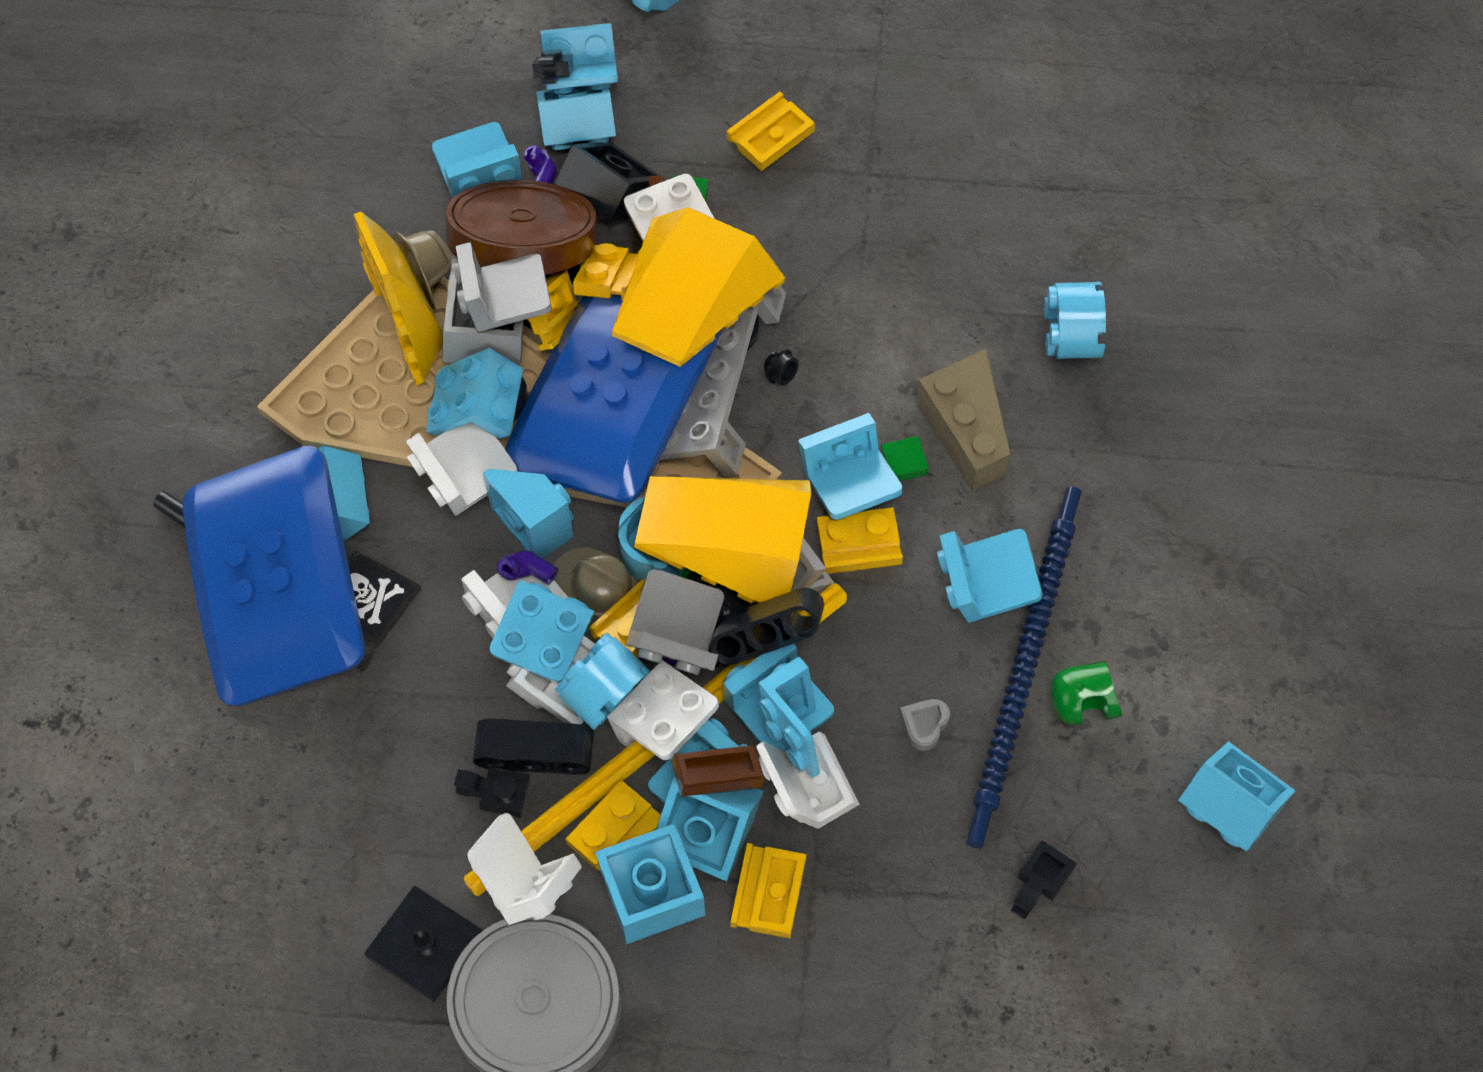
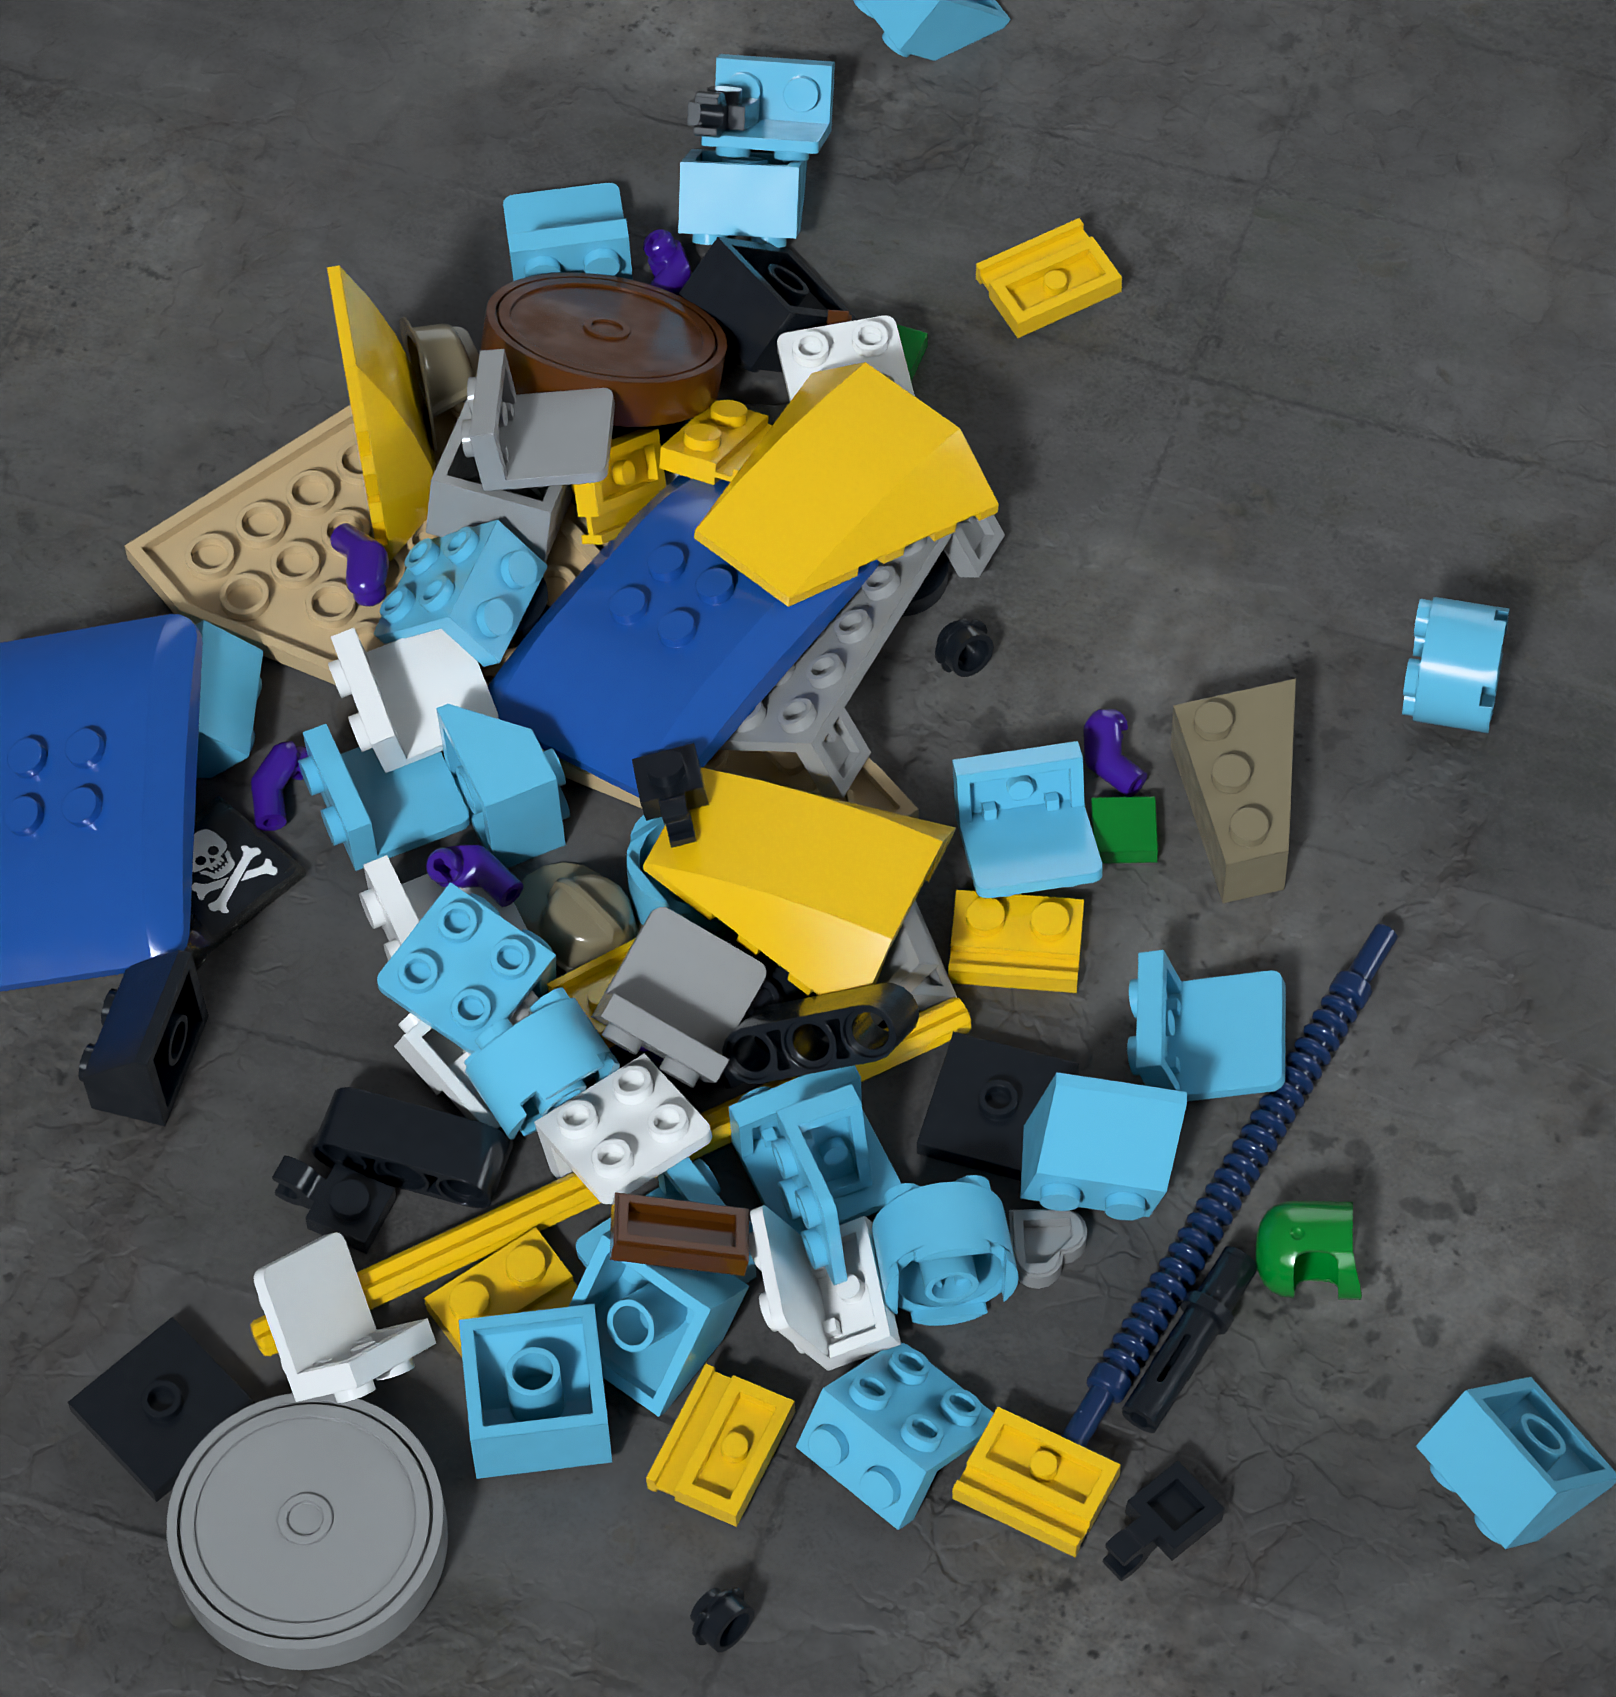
camera: 15 degrees right, 5 degrees down
(352, 714) = (146, 1039): none -> black slope
(384, 534) = (269, 782): none -> dark purple arm
(410, 387) = (365, 564): none -> dark purple arm
(456, 540) = (380, 810): none -> medium azure bracket
(639, 493) = (669, 787): none -> black plate
(797, 998) = (721, 1618): none -> black plate
(869, 858) = (892, 1429): none -> medium azure bracket
(872, 742) = (944, 1250): none -> medium azure brick
(876, 646) = (984, 1103): none -> black plate
(879, 408) = (1104, 752): none -> dark purple arm
(948, 659) = (1101, 1146): none -> medium azure slope
(961, 871) = (1036, 1481): none -> yellow plate
(1032, 747) = (1203, 1318): none -> black pin

